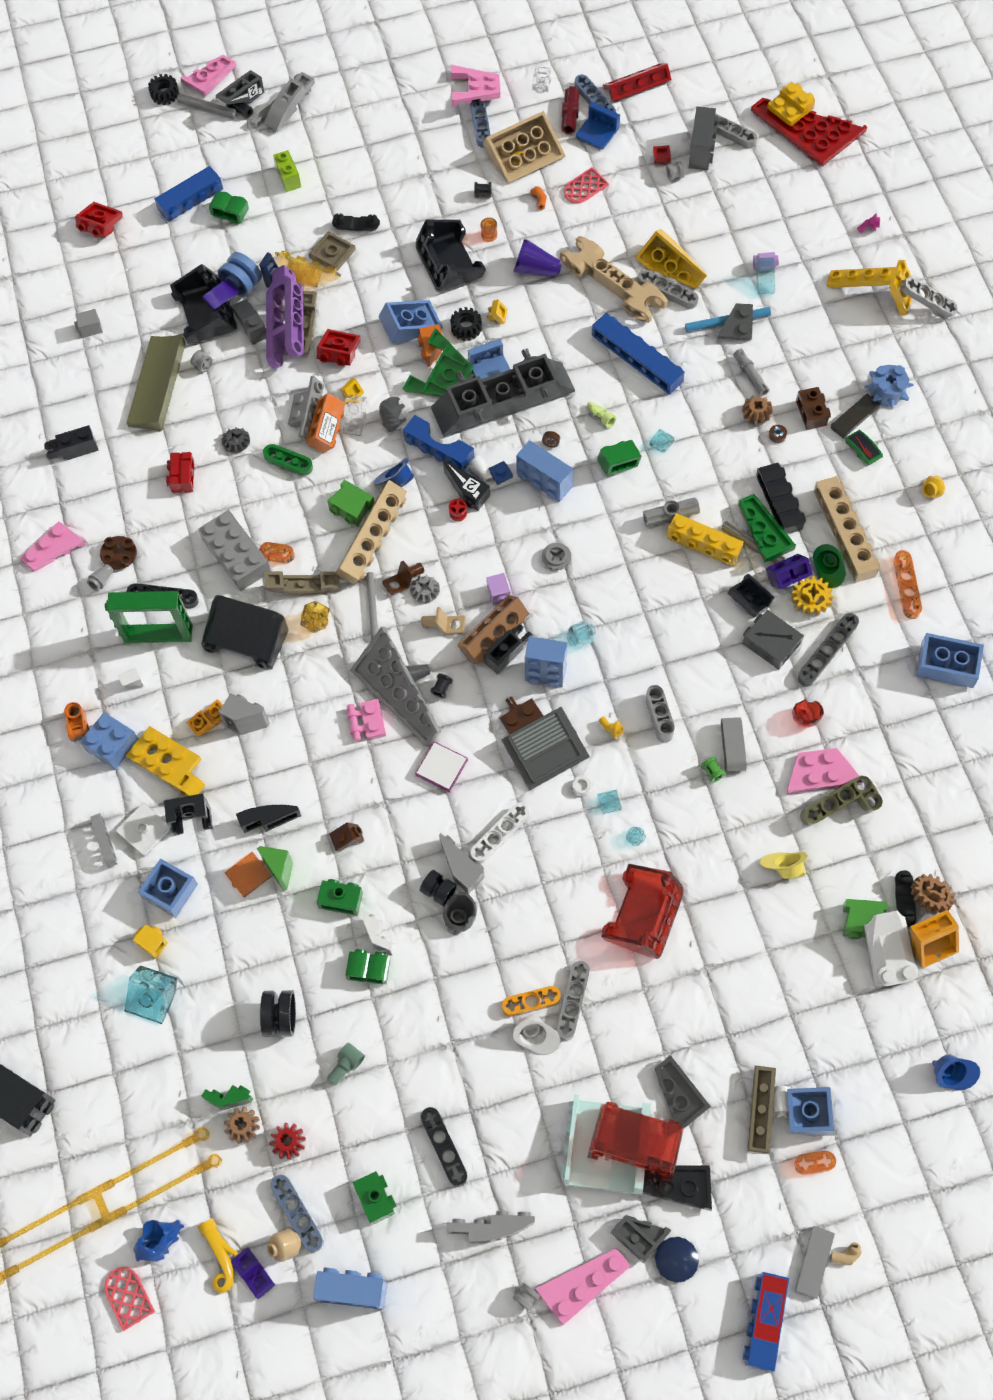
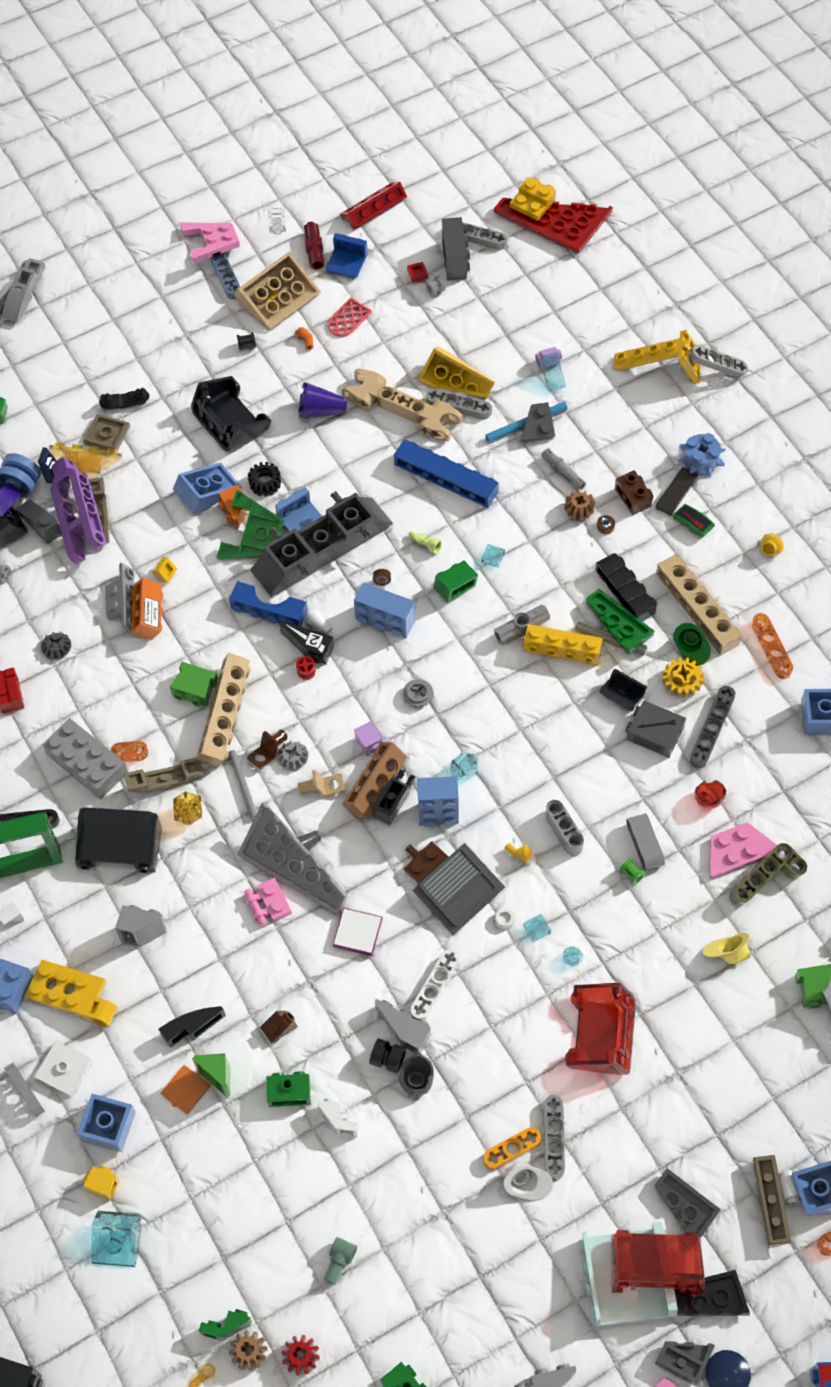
camera: 15 degrees left, 5 degrees down
(187, 807) = (107, 1034): black panel -> none
(206, 720) = (101, 939): light orange slope -> none
(278, 1013) = (256, 1224): black wheel -> none
(283, 455) = (109, 650): green plate -> none
(287, 171) = (39, 361): lime brick -> none
(337, 347) = (139, 529): red plate -> none
(354, 414) = (174, 594): clear slope -> none
(368, 967) = (336, 1154): green brick -> none
(390, 412) = (210, 583): dark grey hair -> none
(398, 474) = (236, 644): blue piece -> none
(441, 685) = (336, 849): black bush -> none
(446, 1145) = (460, 1321): black beam -> none
(488, 229) = (263, 379): clear orange wheel -> none
(498, 312) = (294, 461): yellow tile -> none
(500, 472) = (339, 621): blue plate -> none
(590, 86) = (327, 218): sand blue beam -> none
(789, 571) = (654, 657): dark purple brick -> none
(873, 222) = (643, 298): dark pink plate -> none

